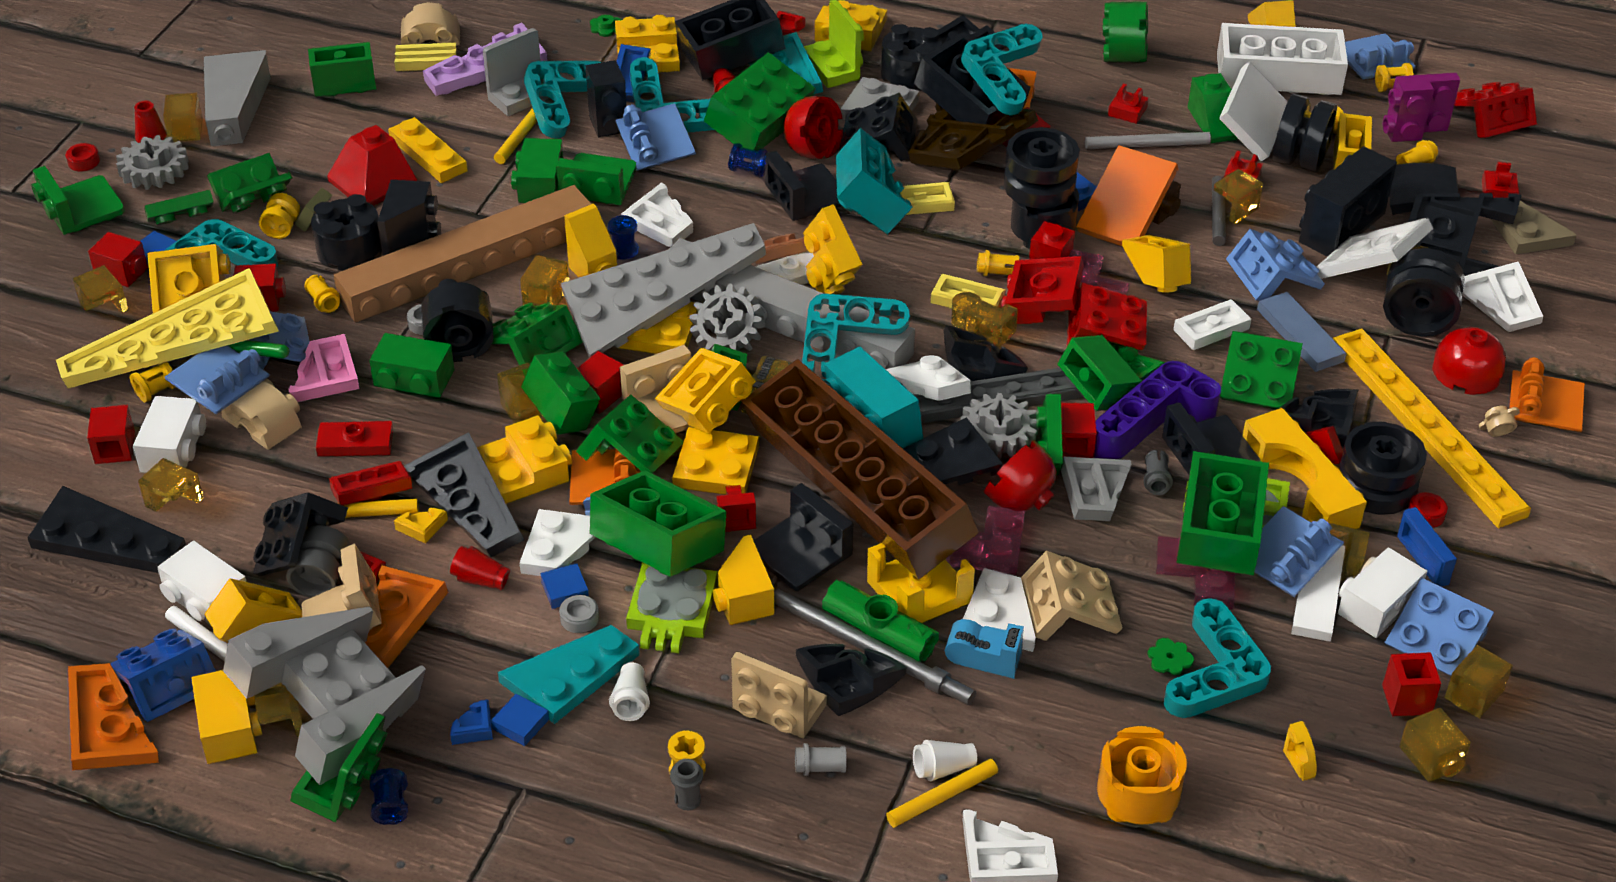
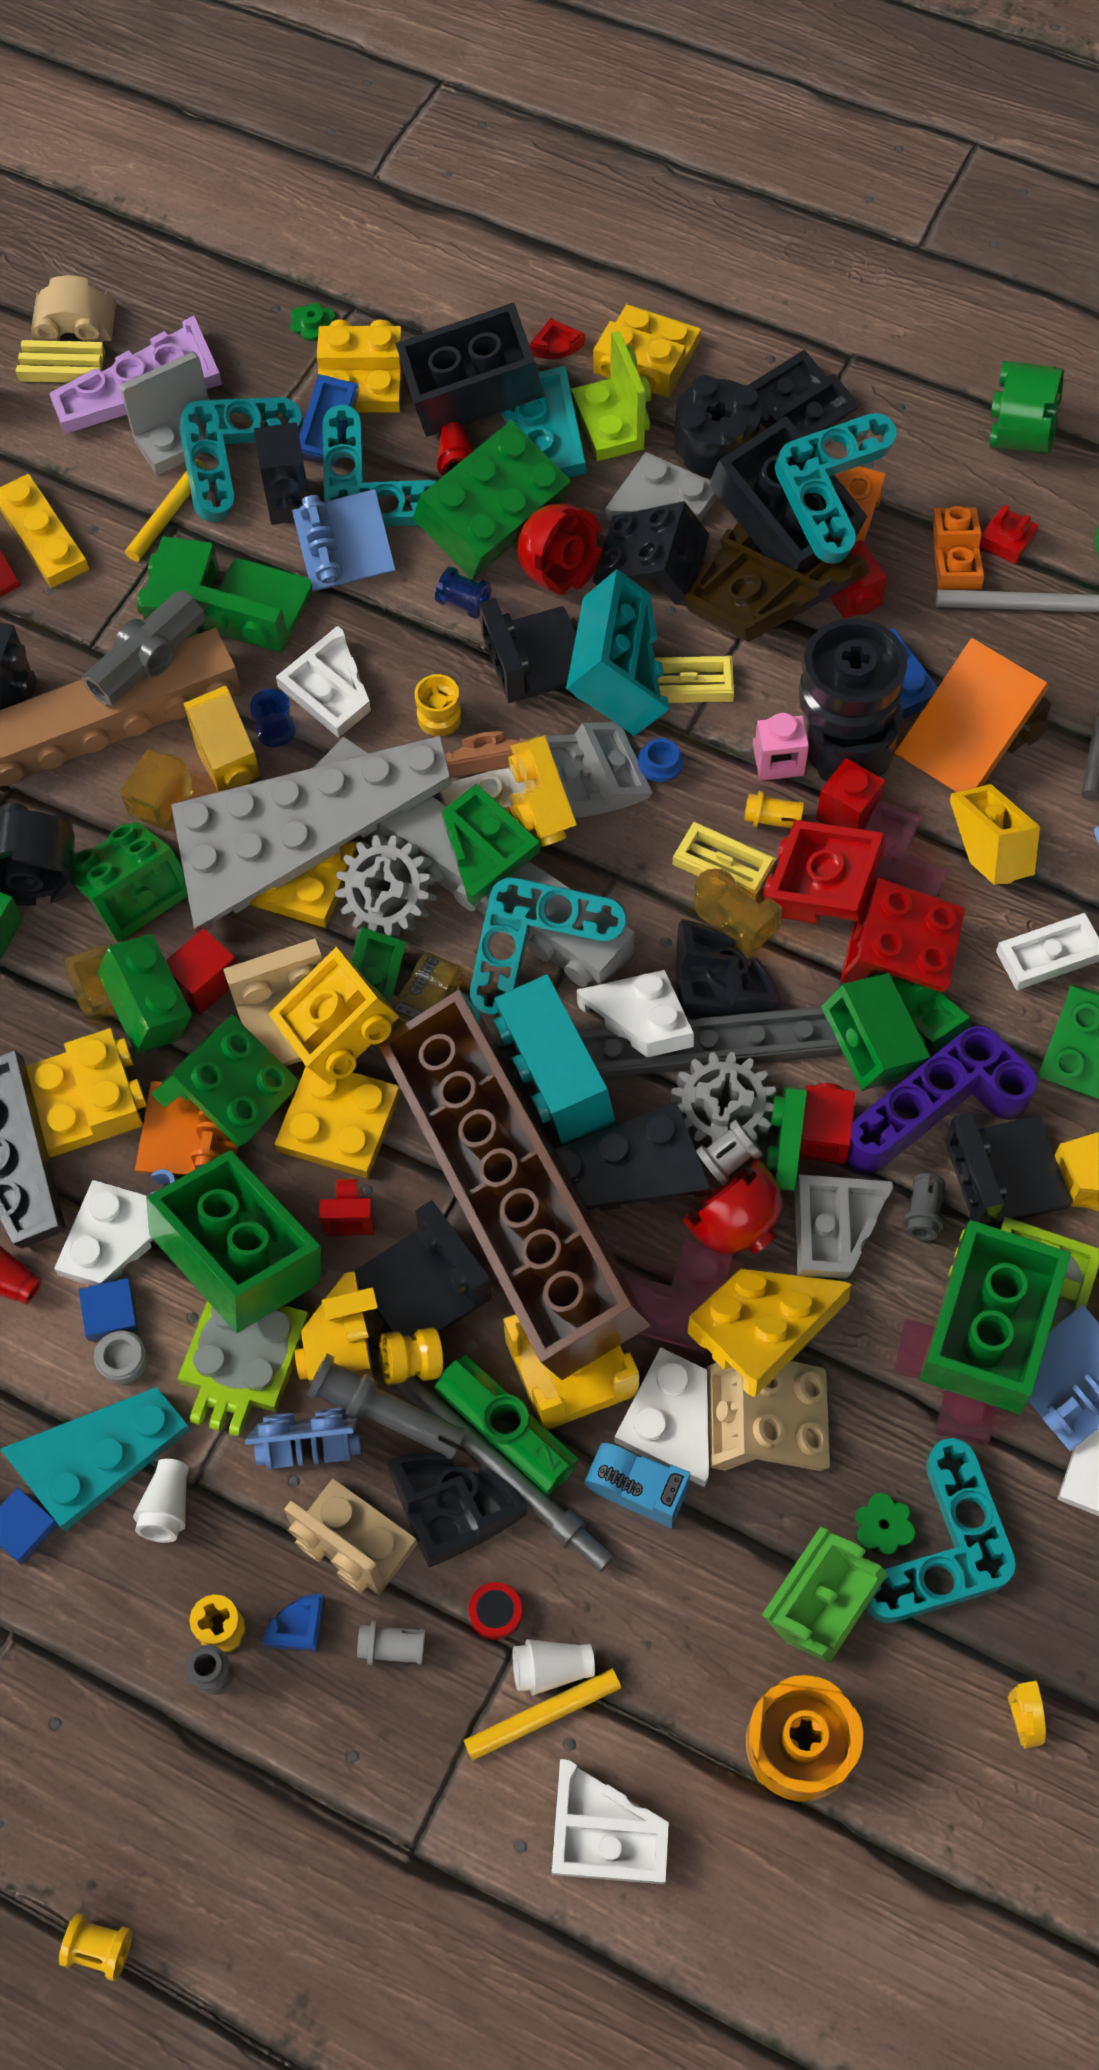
camera: 10 degrees right, 20 degrees up
(525, 194) = (144, 648): none -> dark grey piece
(715, 630) = (280, 1429): none -> medium blue hinge
(741, 213) = (438, 705): none -> yellow wheel
(745, 759) = (297, 1625): none -> blue tile
(756, 547) = (351, 1308): none -> yellow tile
(772, 602) = (362, 1397): none -> dark grey pin
(797, 281) = (485, 842): none -> green wing
(800, 582) = (410, 1356): none -> yellow wheel
(875, 251) = (598, 769): none -> light grey slope
(894, 734) = (495, 1610): none -> tile
(910, 242) = (660, 760): none -> blue plate
(995, 218) = (780, 736): none -> bright pink brick
(1011, 441) = (729, 1152): none -> light grey bush
(1062, 537) = (764, 1321): none -> yellow wing
(1094, 113) = (957, 548): none -> orange slope
(1136, 692) = (824, 1595): none -> bright green hinge

